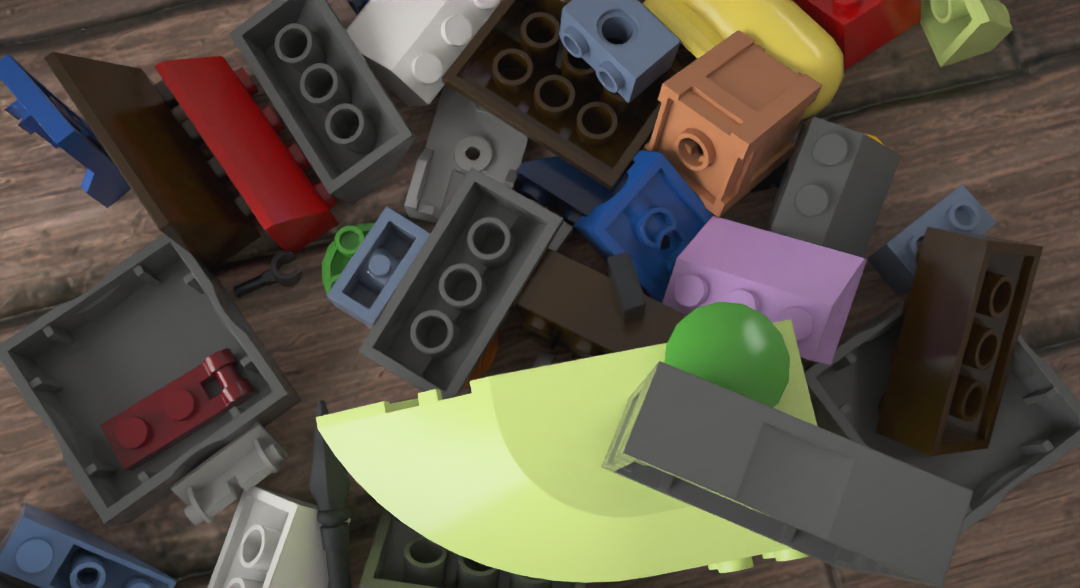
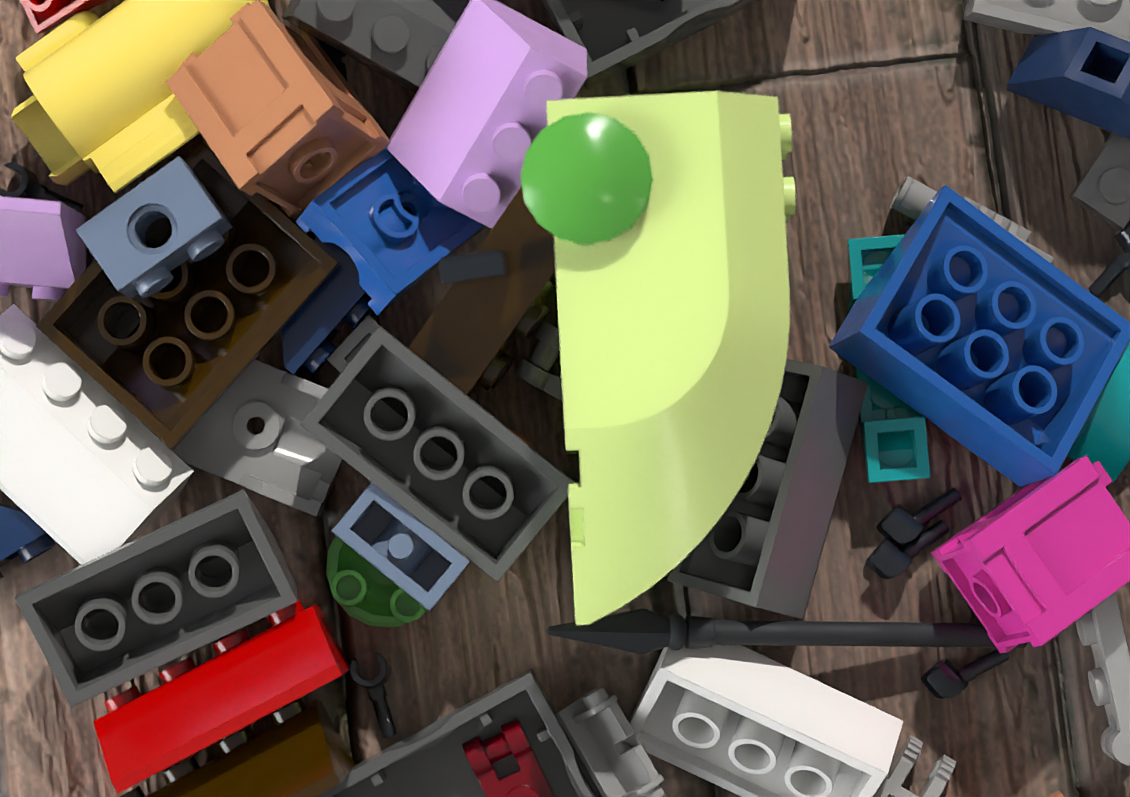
camera: 80 degrees left, 10 degrees up
(787, 479) = (716, 168): dark grey tile -> none

